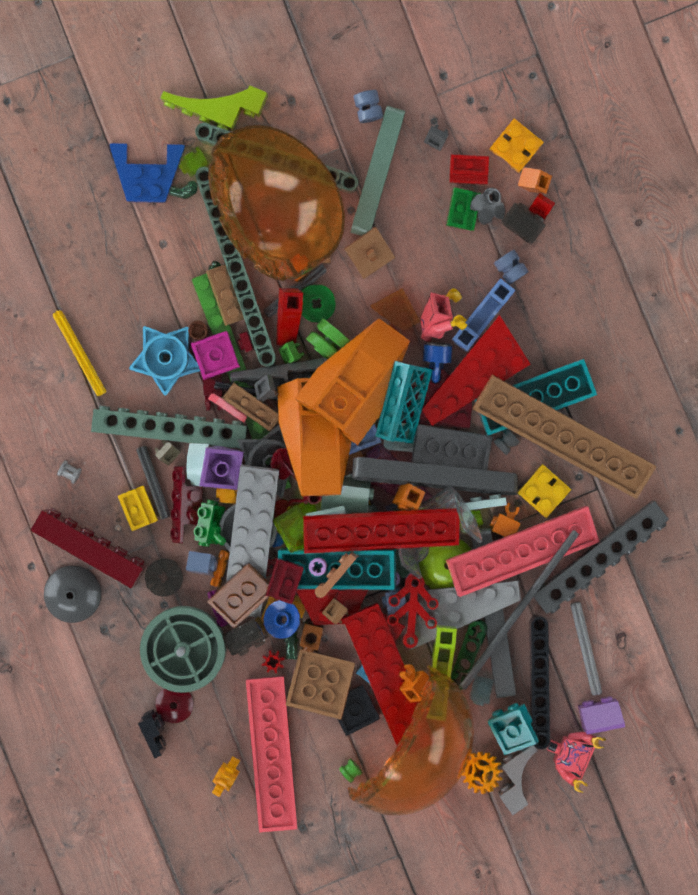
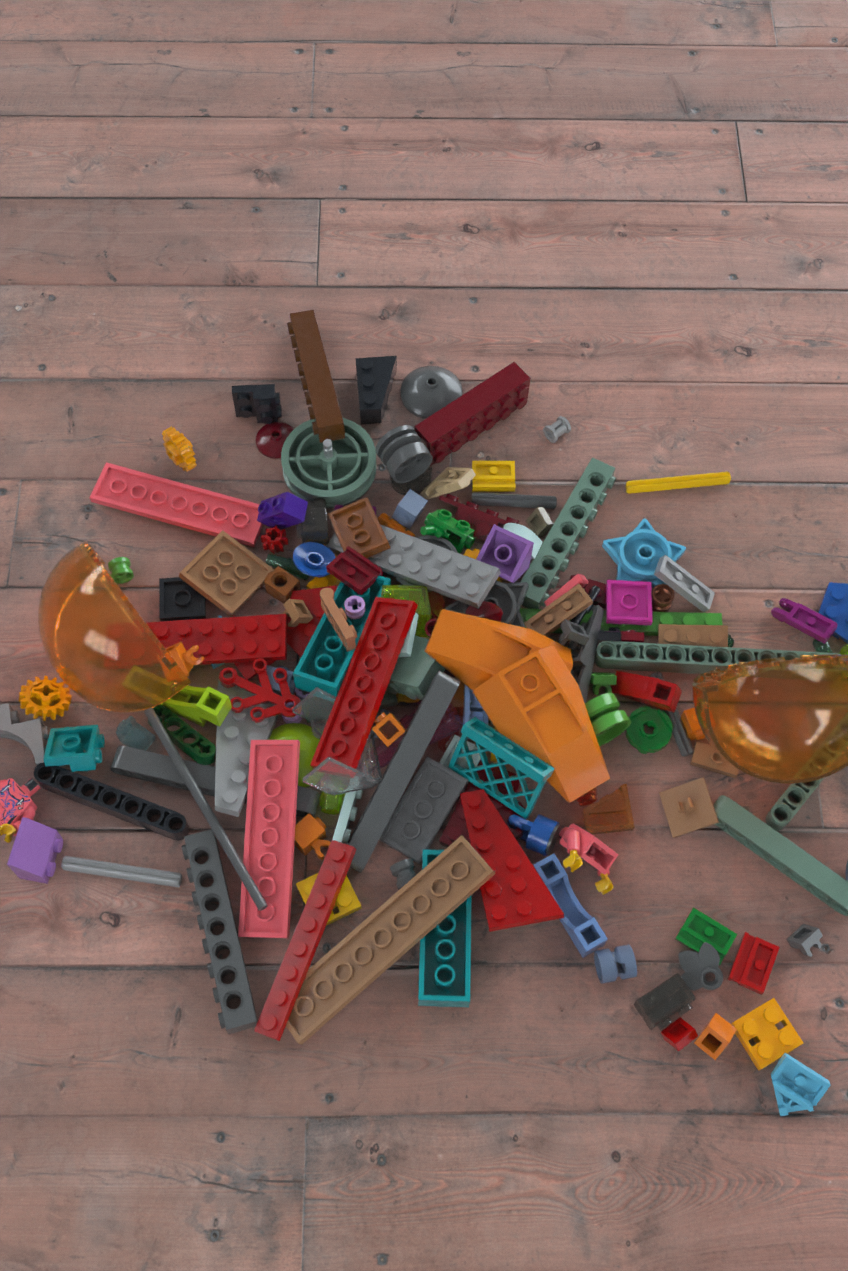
camera: 115 degrees right, 25 degrees down
(90, 644) = (374, 385): none -> black wedge
(106, 695) = (316, 375): none -> reddish brown brick
(160, 585) = (403, 454): none -> dark grey wheel
(162, 542) = (449, 481): none -> tan wing
(172, 209) = (805, 620): none -> magenta hinge
(181, 316) = (684, 583): none -> light grey plate
(250, 664) = (282, 511): none -> dark purple brick
(251, 360) = (612, 634): none -> black tile
(544, 114) = (797, 1085): none -> medium azure slope
(584, 492) = (305, 940): none -> red plate

